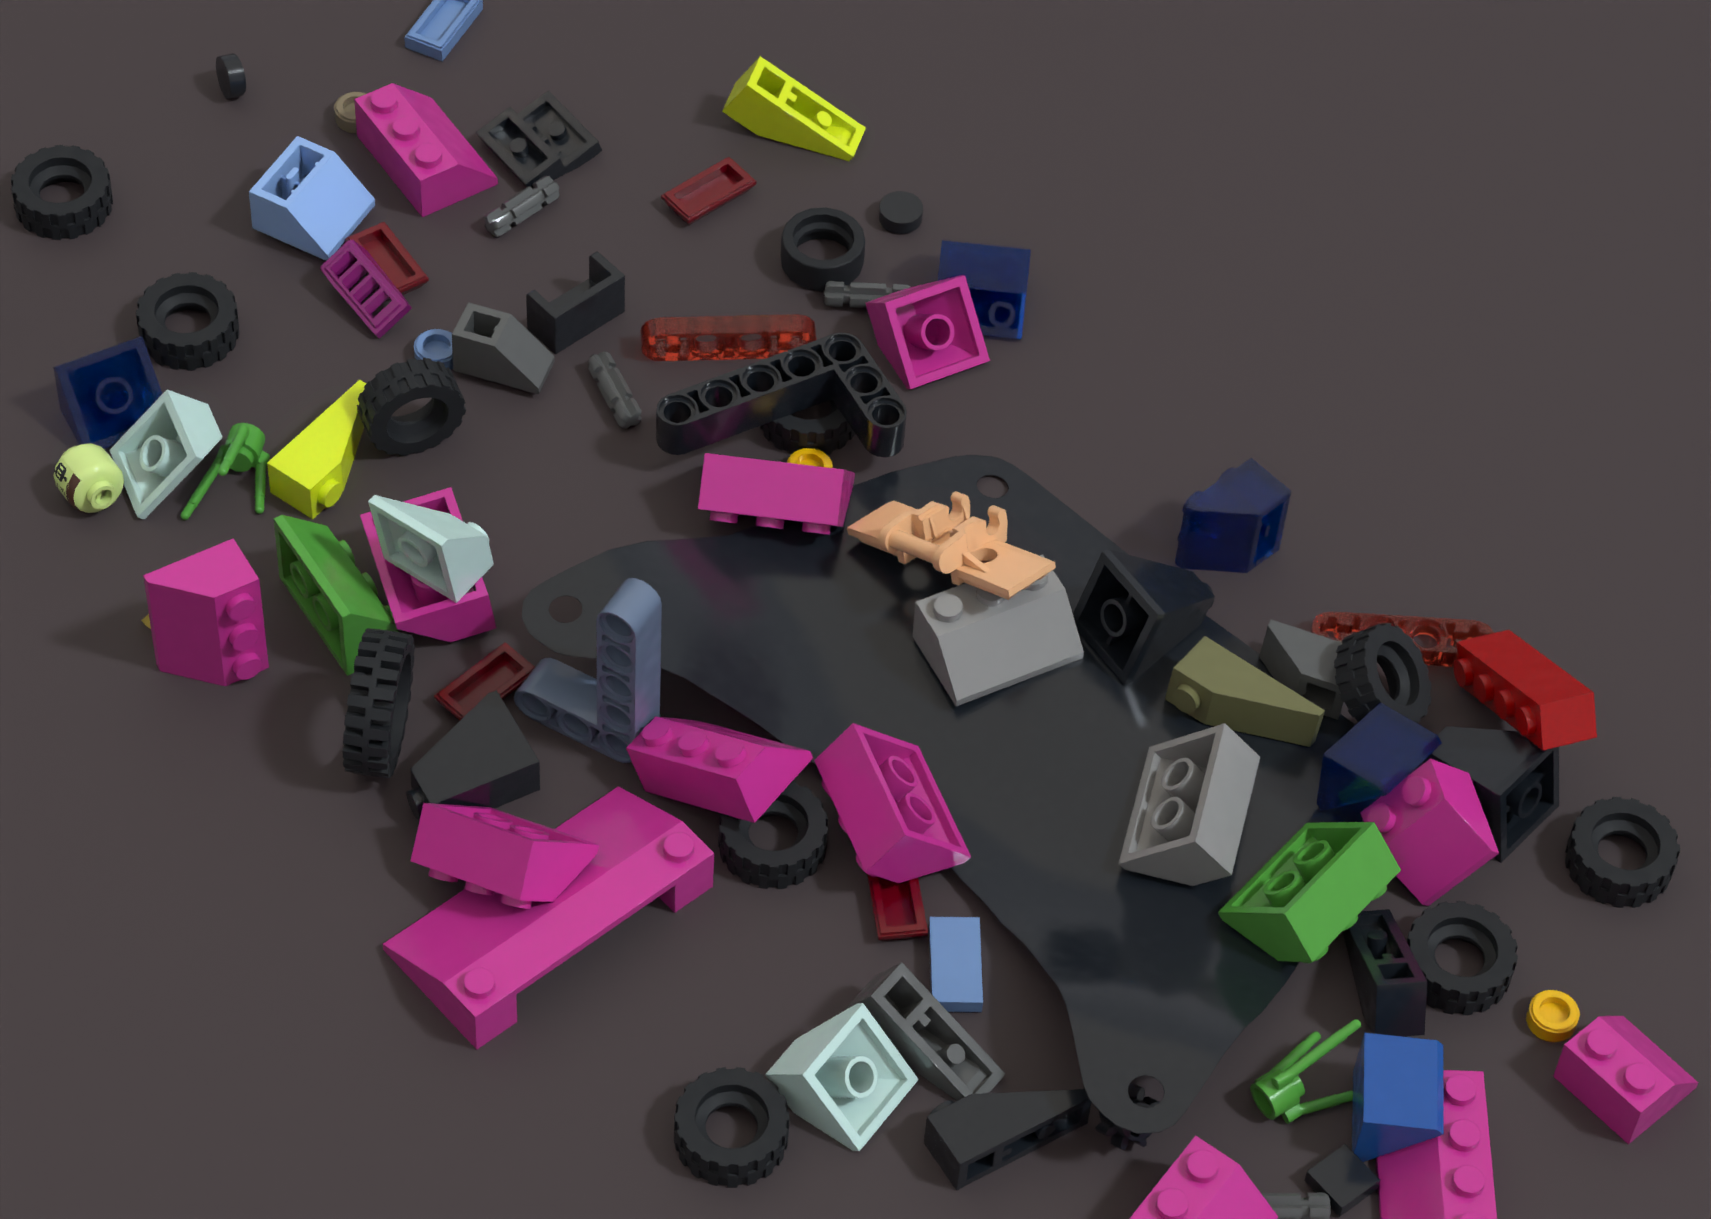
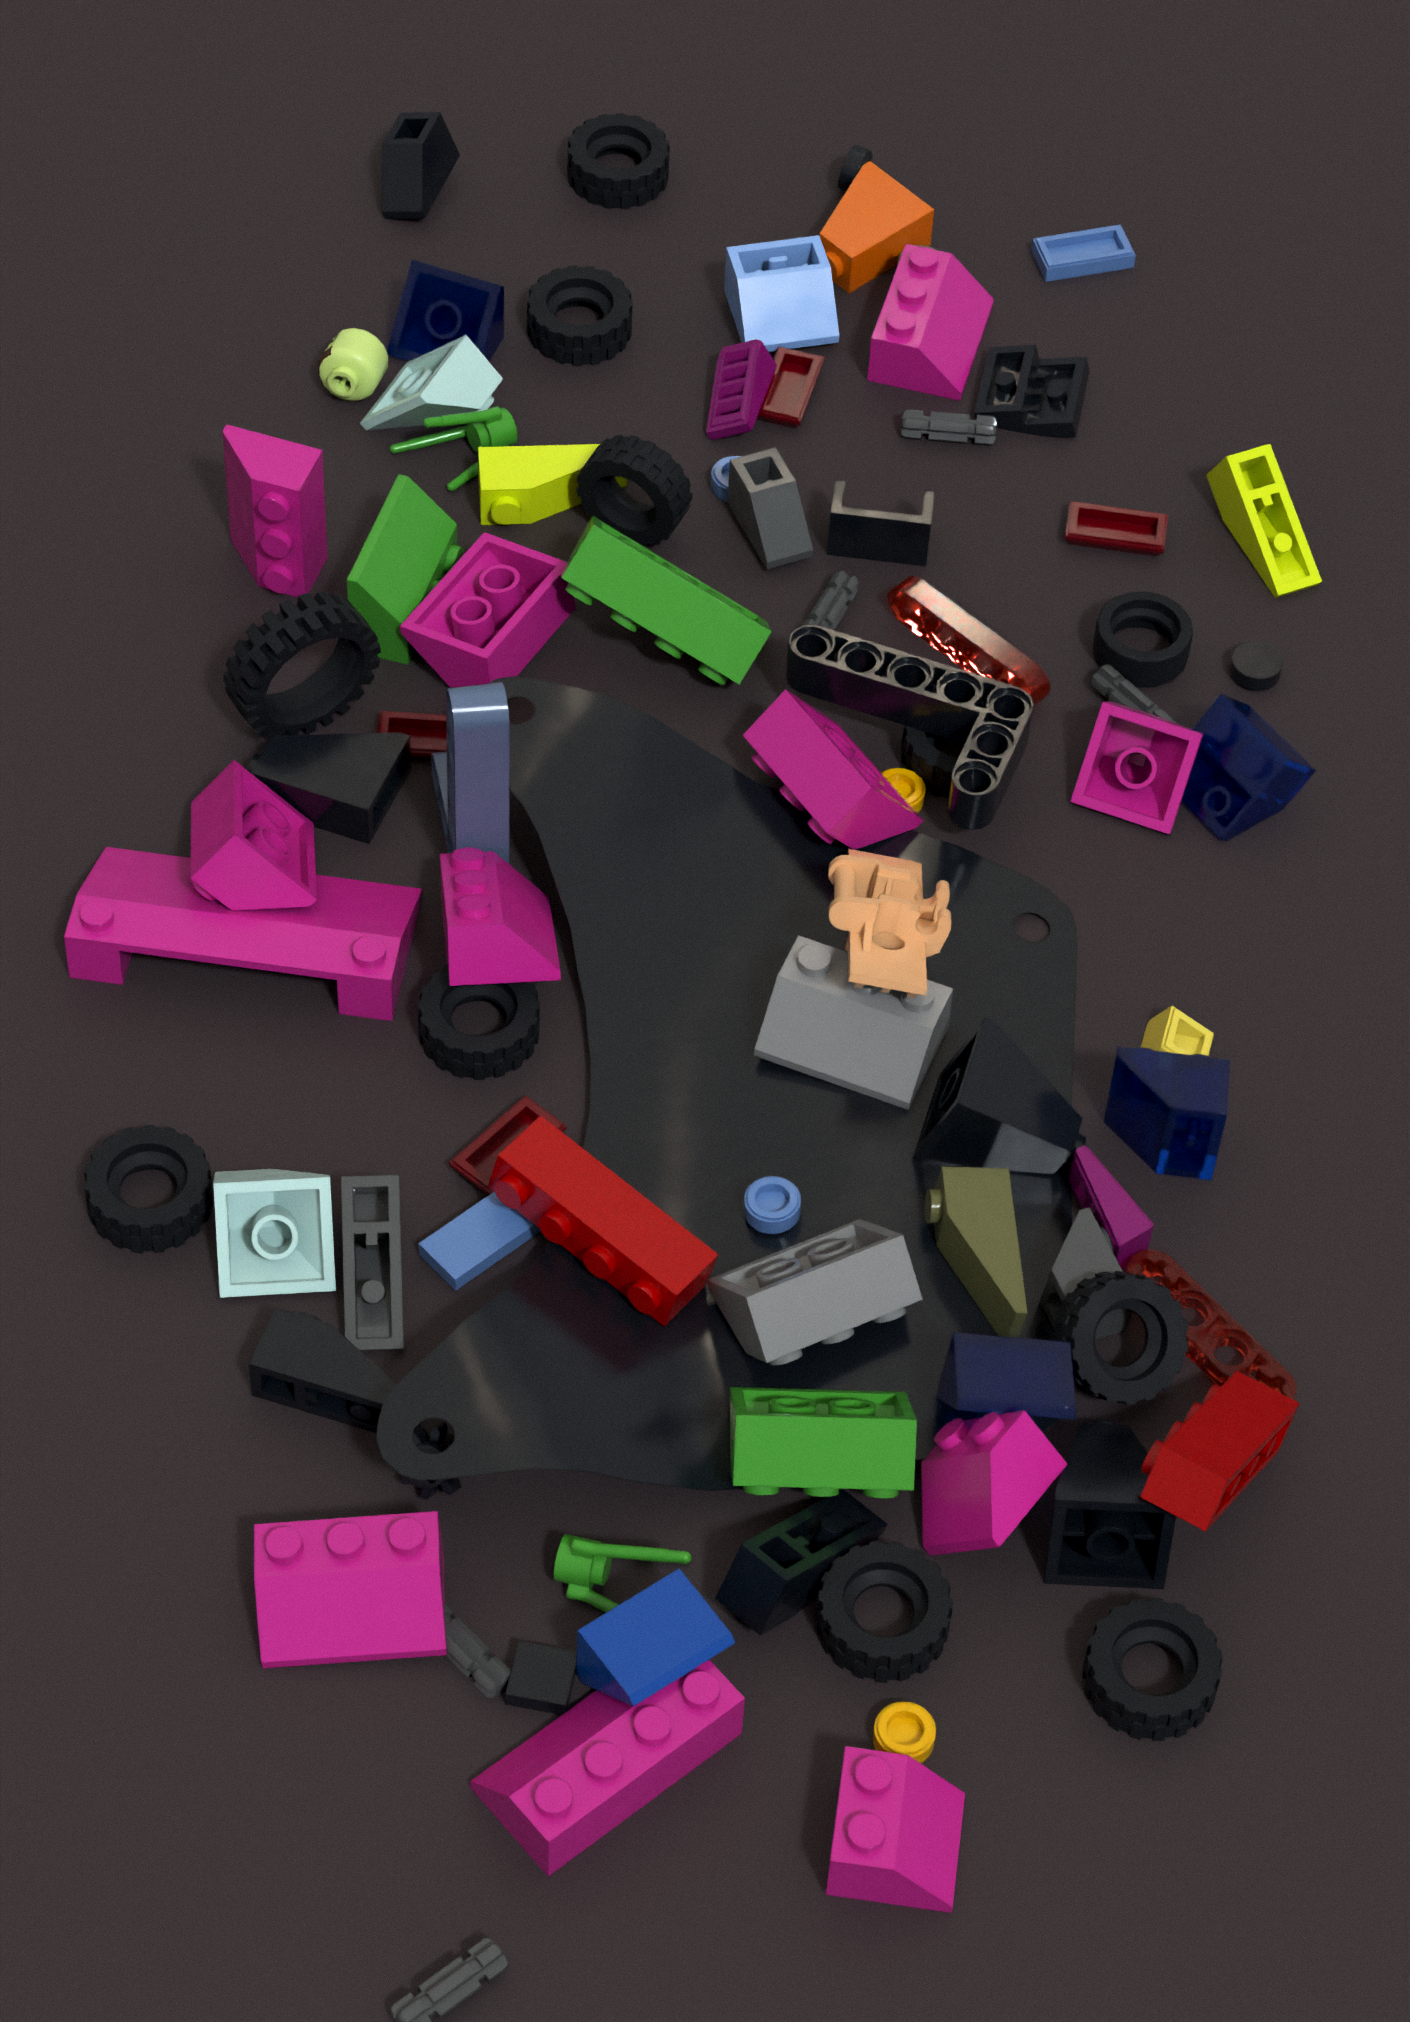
camera: 50 degrees right, 0 degrees up
(294, 100) = (873, 227): none -> orange slope
(432, 545) = (480, 583): light aqua slope -> none
(537, 463) = (665, 601): none -> bright green slope
(890, 806) = (583, 1066): dark pink slope -> none
(1030, 881) = (602, 1221): none -> red brick
(1091, 784) = (772, 1205): none -> medium blue tile
(1159, 486) = (1176, 1033): none -> light yellow slope
(1260, 606) = (1111, 1206): none -> magenta slope

